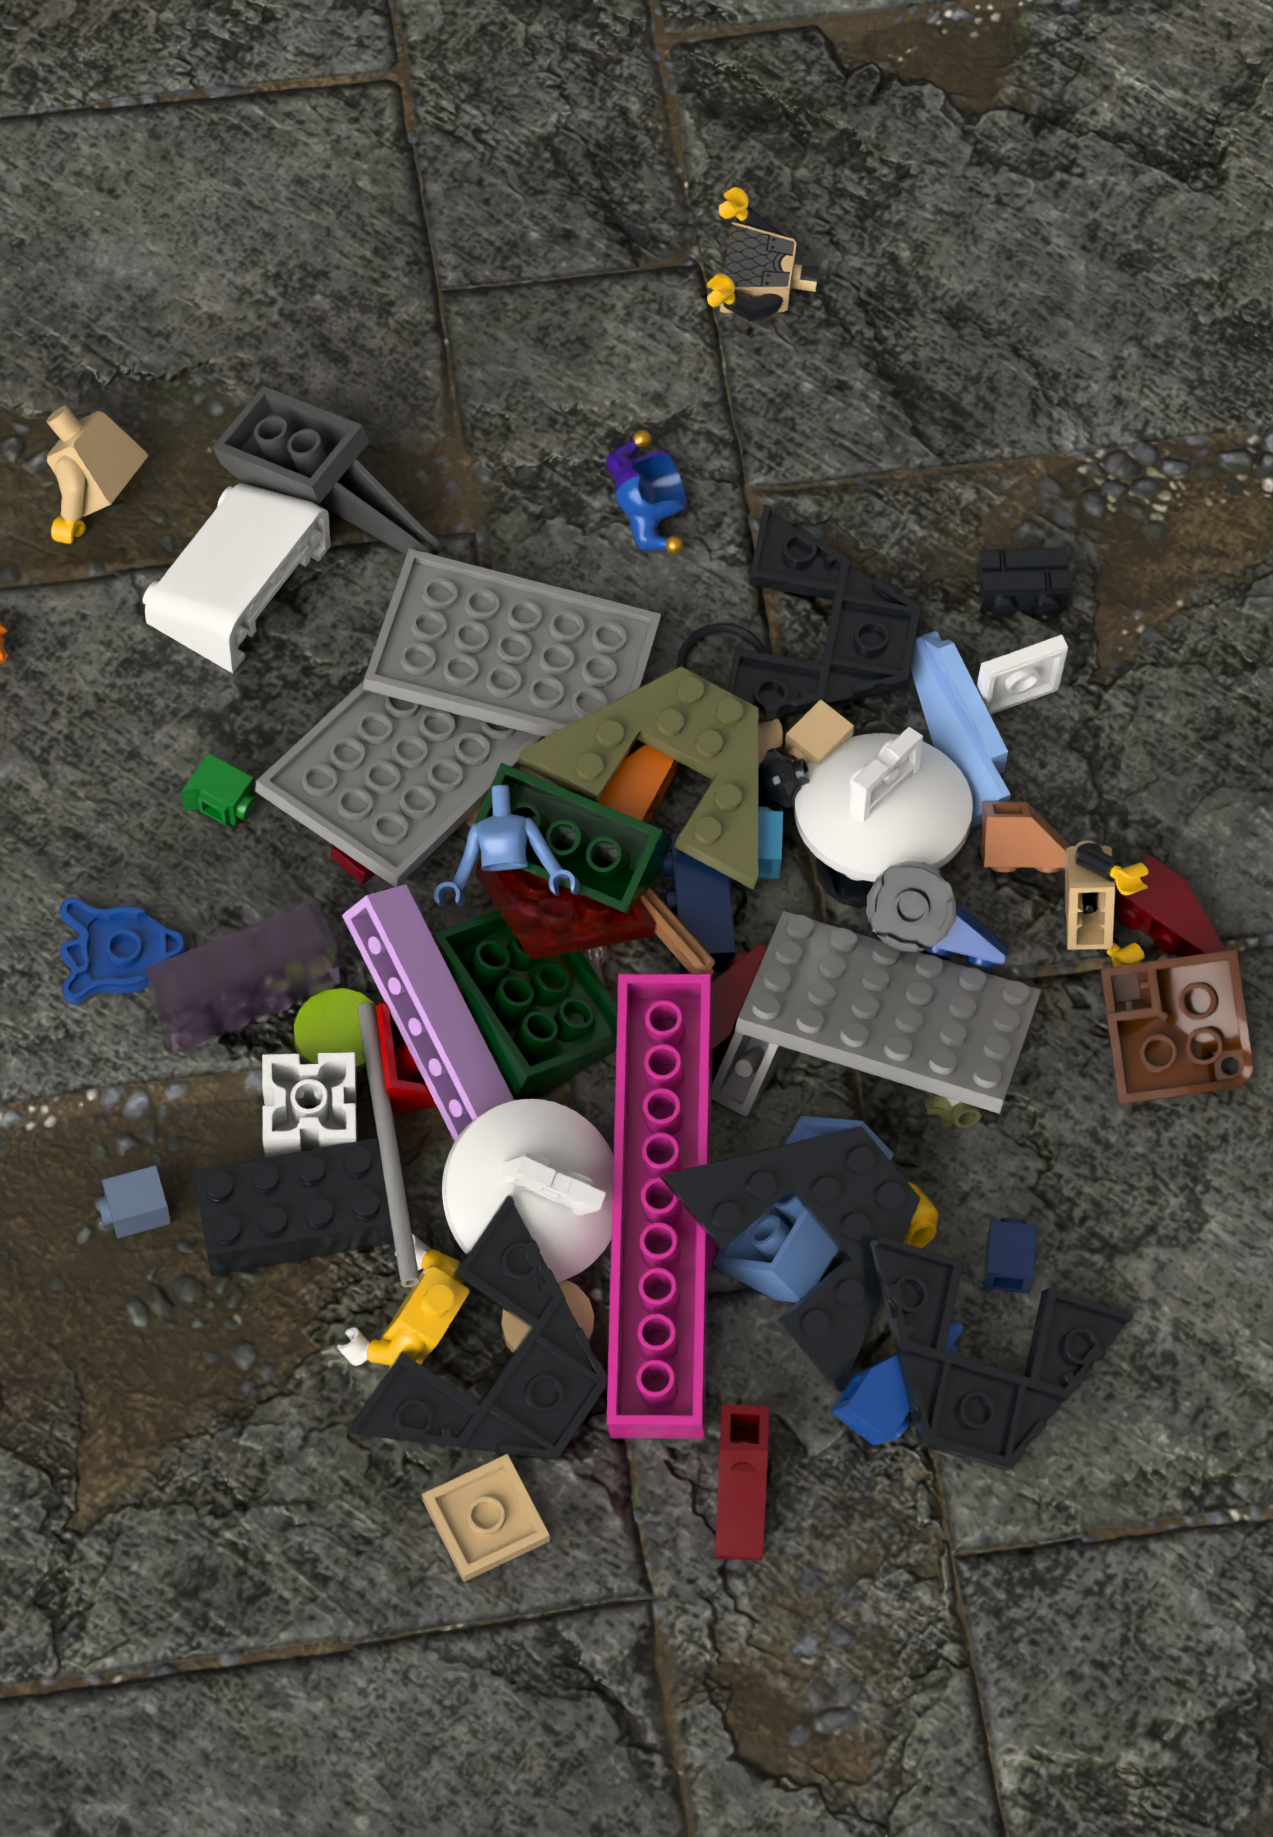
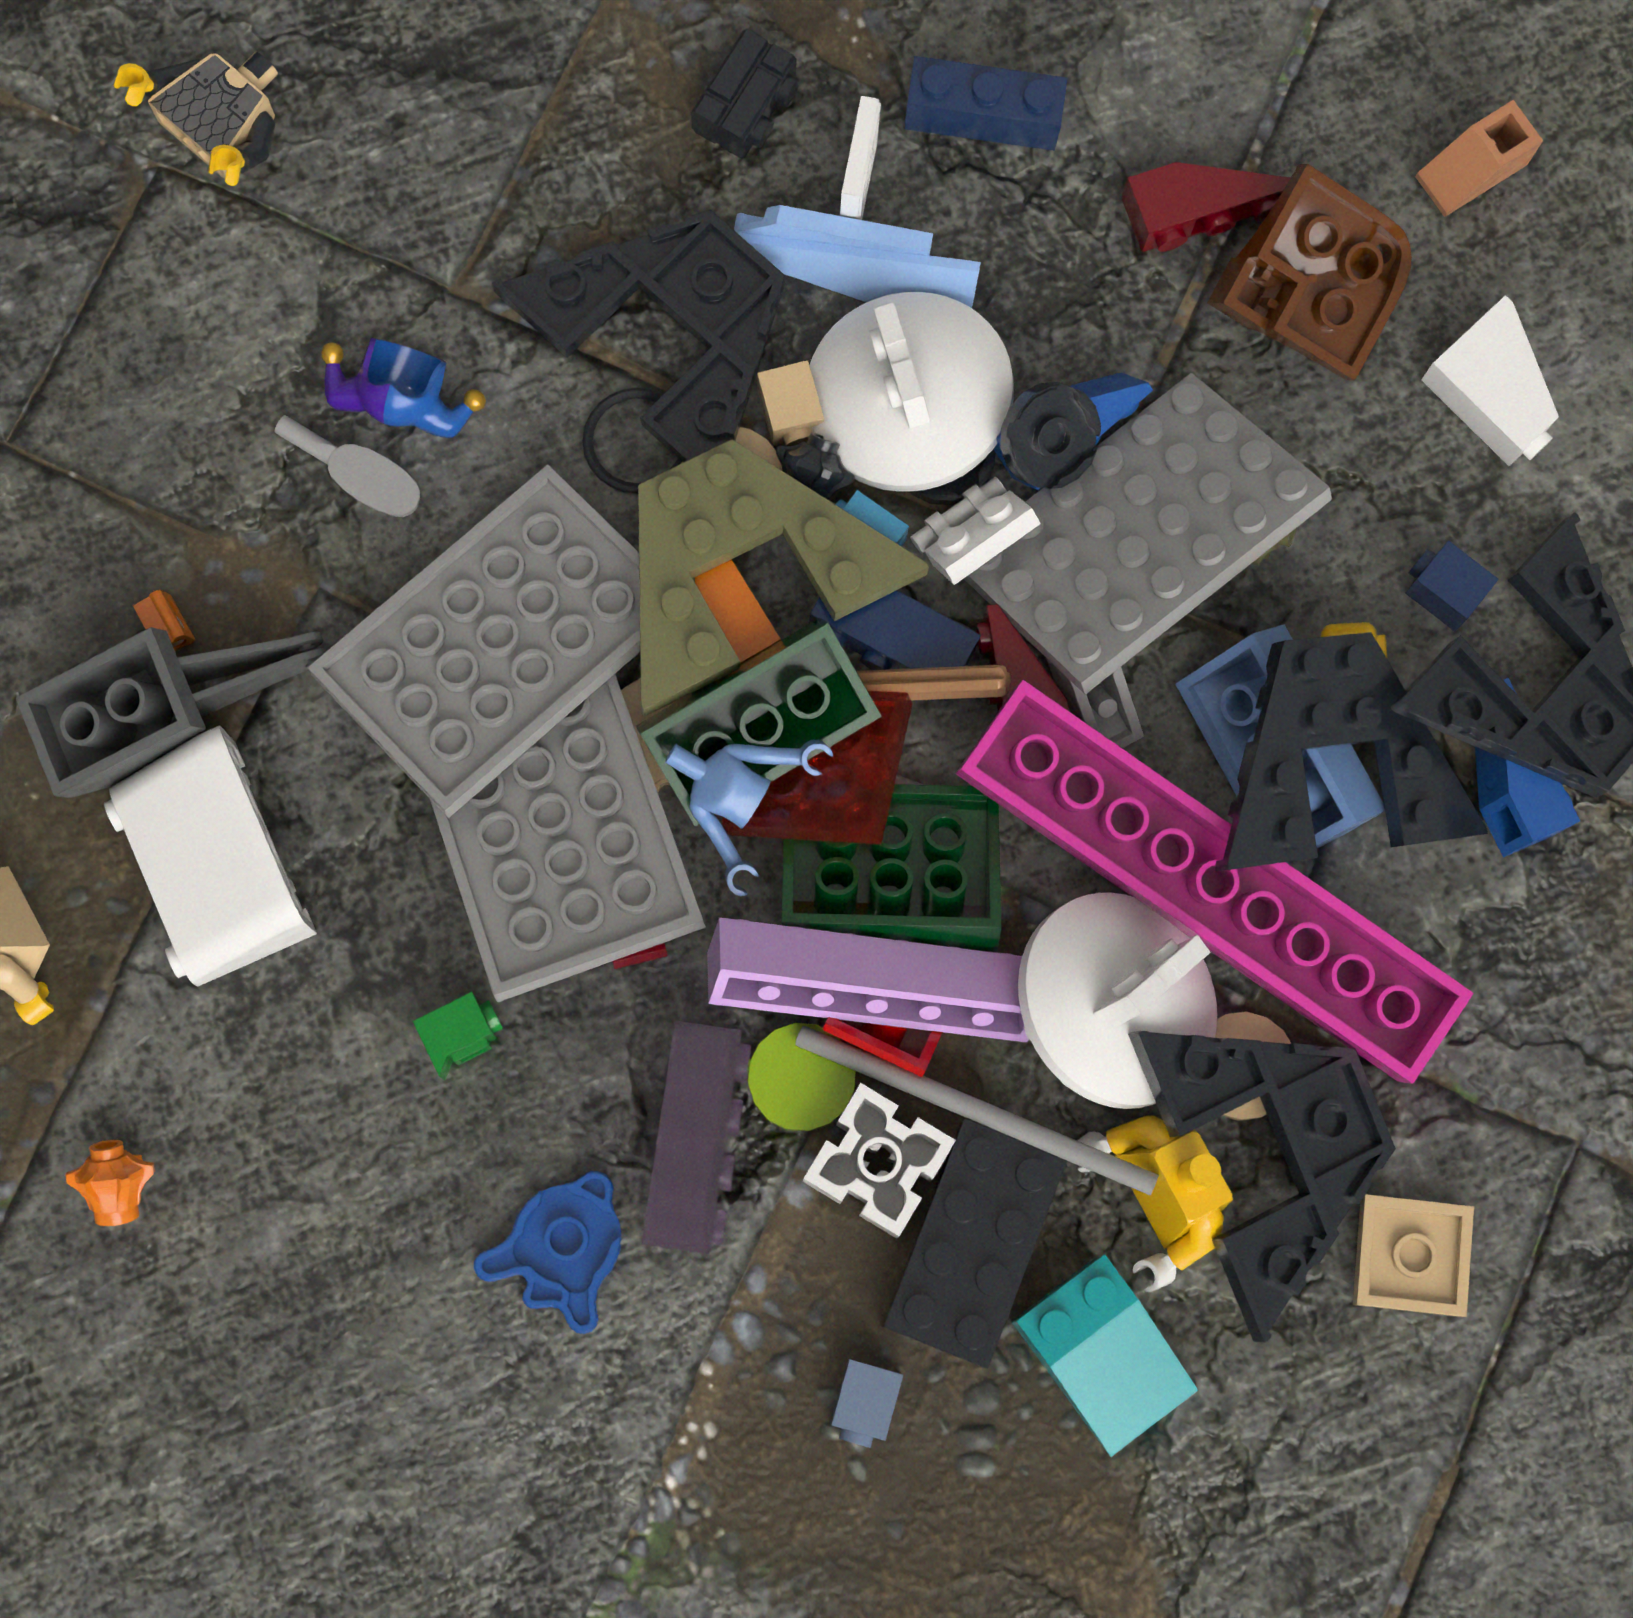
camera: 60 degrees left, 15 degrees up
(272, 1342) = (1105, 1354): none -> slope
(382, 451) = (162, 613): none -> orange piece
(572, 505) = (358, 471): none -> light grey piece
(741, 1482) = (1529, 986): dark red slope -> none
(812, 906) = (974, 529): none -> white plate
(1019, 837) = (1026, 286): nougat slope -> none
(1091, 900) = (1144, 256): torso -> none
(1135, 735) = (985, 103): none -> dark blue brick
(1189, 1199) = (1496, 385): none -> white slope

